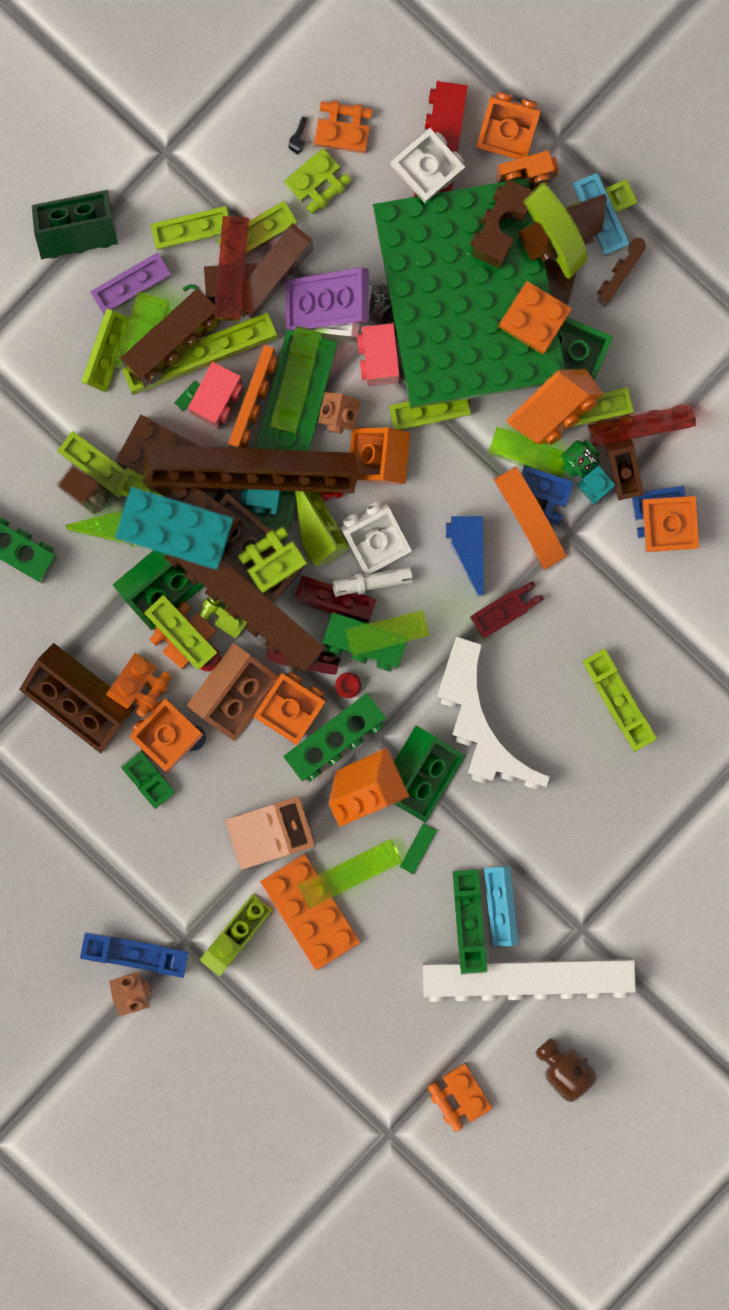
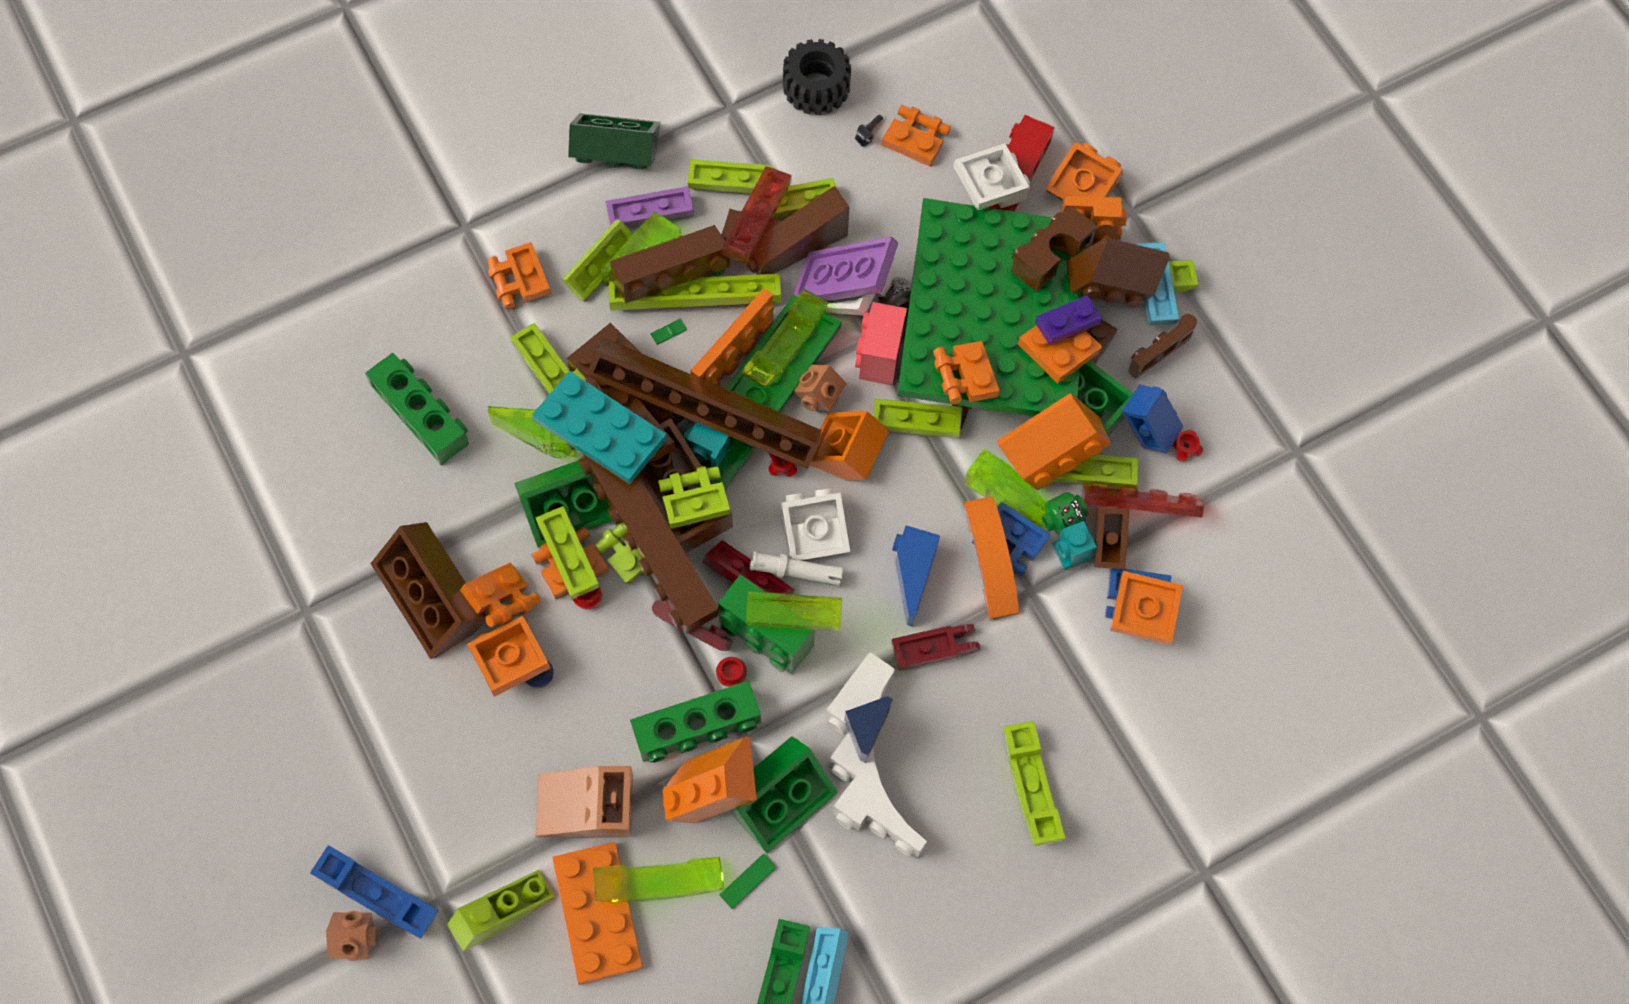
camera: 10 degrees right, 20 degrees down
(46, 382) = (527, 272): none -> orange plate
(84, 490) = (519, 366): reddish brown brick -> none
(147, 779) = (470, 702): green slope -> none
(216, 396) = (694, 329): coral brick -> none
(231, 79) = (822, 59): none -> black tyre
(233, 692) = (602, 637): nougat slope -> none
(290, 707) = (658, 671): orange plate -> none
(312, 175) = (870, 168): lime plate -> none
(319, 530) = (756, 496): lime slope -> none
(470, 369) = (974, 370): none -> orange plate
(473, 702) = (866, 723): none -> dark blue slope
(536, 296) = (1068, 320): none -> dark purple plate
(560, 228) = (1115, 262): lime slope -> none
(631, 349) = (1152, 418): none -> blue brick
(665, 351) = (1187, 437): none -> red plate

